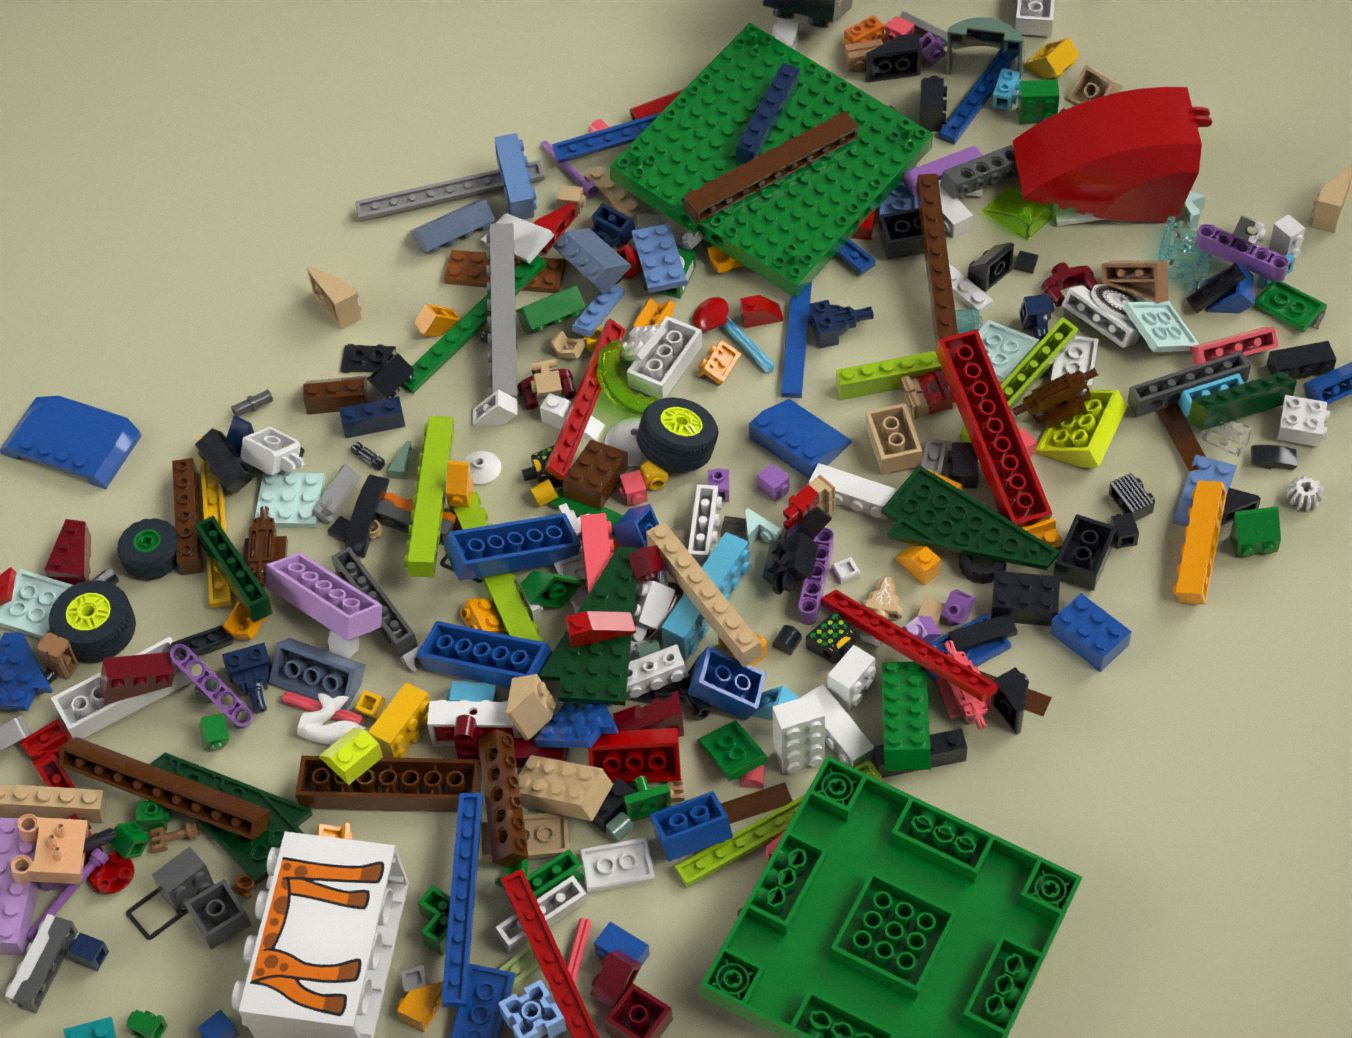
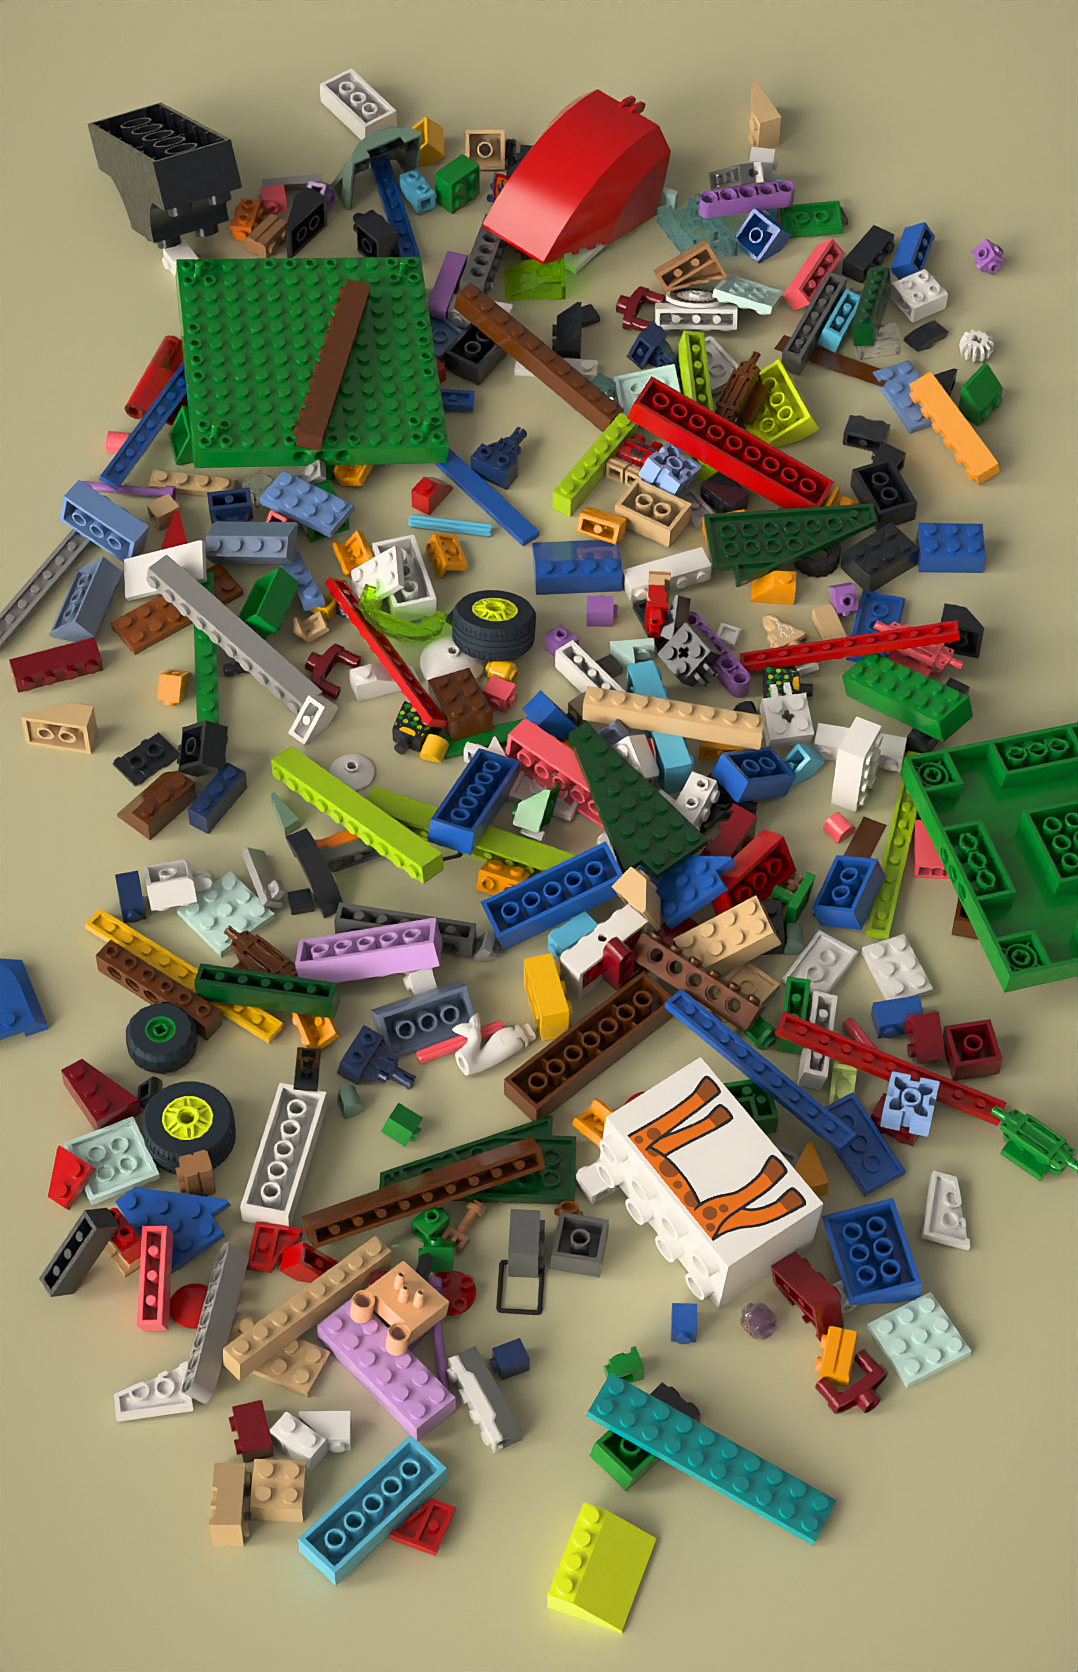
camera: 50 degrees left, 0 degrees up
(135, 675) = (299, 1129): dark red wedge -> none
(202, 680) = (354, 1091): medium lavender beam -> none
(224, 461) = (143, 920): black brick -> none
(252, 403) = (94, 865): dark grey pin -> none
(352, 754) = (545, 1042): neon yellow slope -> none
(368, 455) = (248, 831): black axle -> none
(370, 704) = (496, 1006): yellow brick -> none
(385, 253) = (56, 665): none -> dark red brick
(459, 484) = (375, 785): light orange slope -> none
(547, 380) = (337, 662): tan brick -> none
(598, 626) = (631, 800): red slope -> none
(646, 562) = (608, 727): dark red brick -> none
(646, 648) = (671, 791): sand green brick -> none
(667, 915) = (896, 968): none -> white plate
(711, 314) = (395, 520): red dish -> none
(732, 750) = (809, 820): green tile -> none
(768, 113) = (285, 323): dark blue brick -> none
(804, 650) = (786, 708): none -> white hinge
(847, 421) = (602, 525): none -> light orange brick
(852, 677) = (833, 699): white brick -> none
(923, 628) = (841, 629): medium lavender brick -> none
(936, 415) = (670, 470): none -> light blue brick
(983, 633) = (880, 603): black tile -> none
(1216, 288) = (754, 239): black tile -> none

